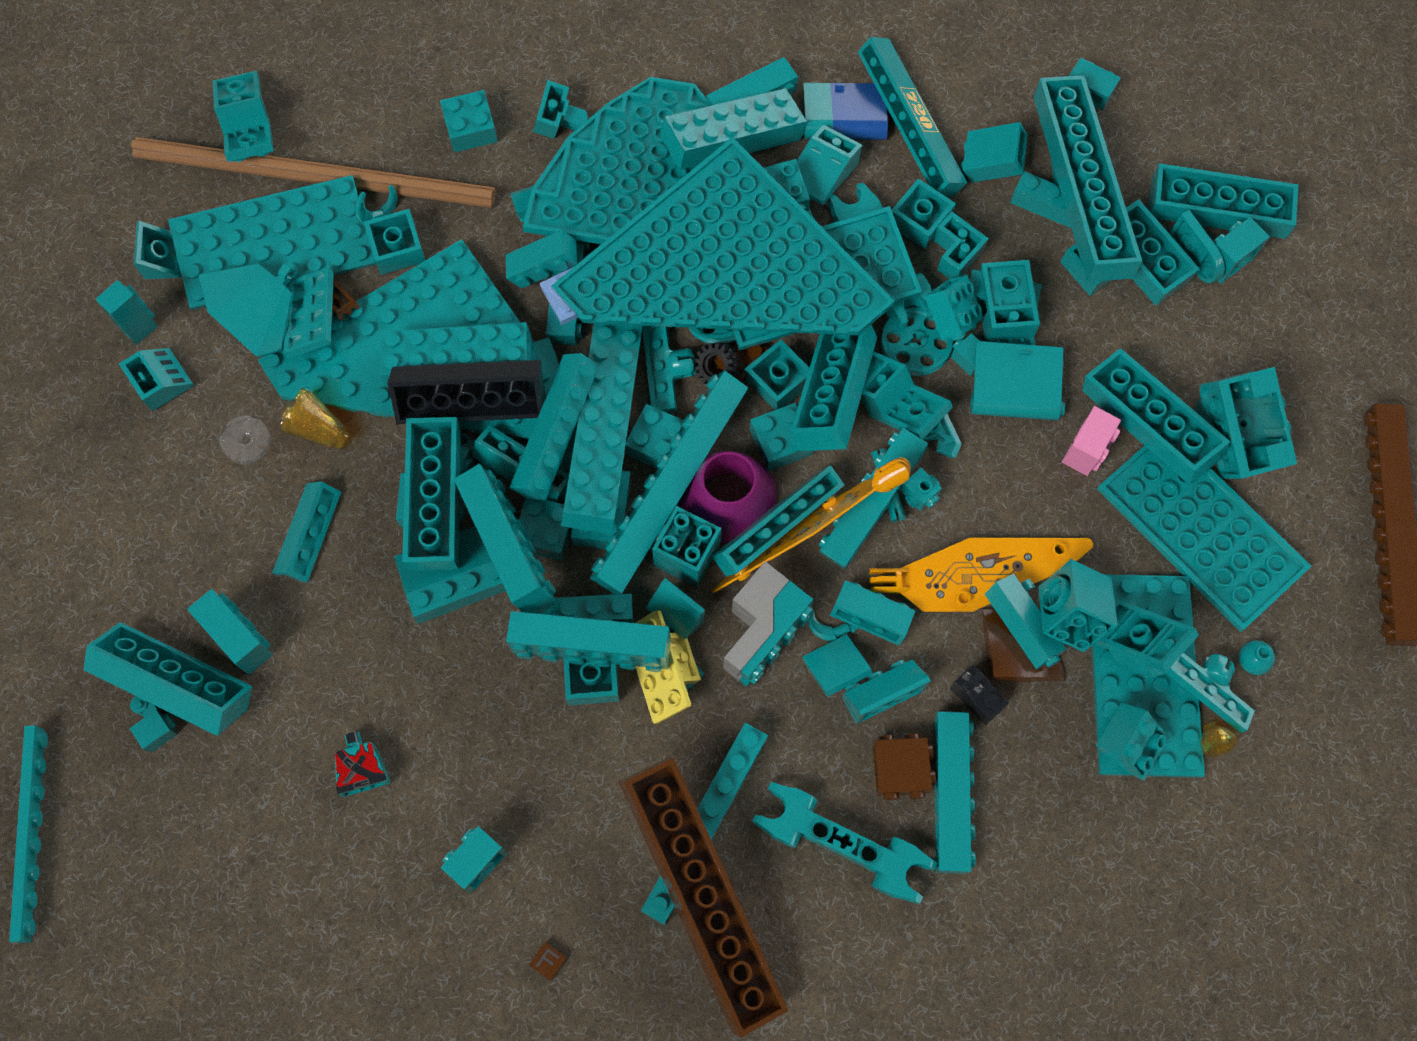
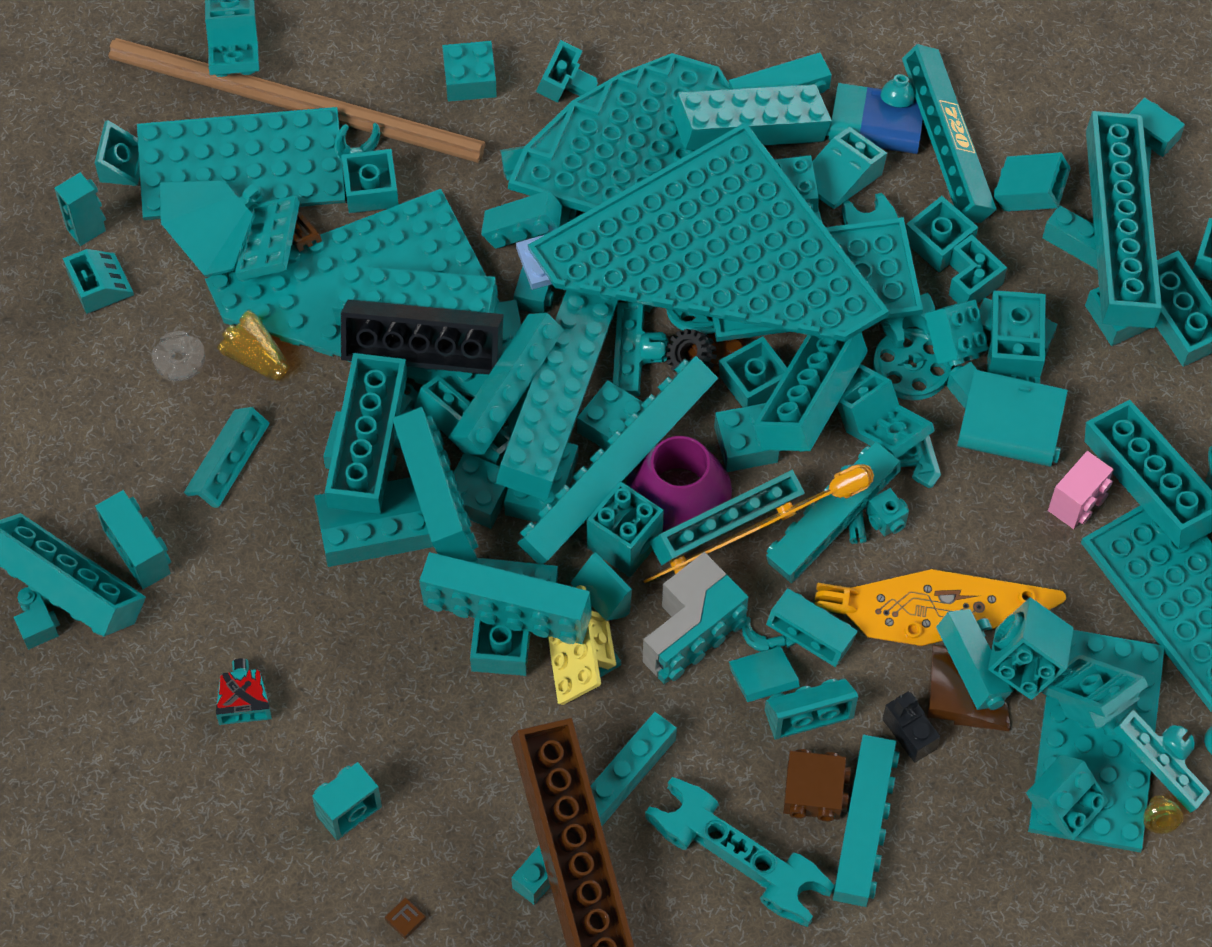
camera: 10 degrees right, 10 degrees down
(860, 84) = (898, 92): none -> teal brick

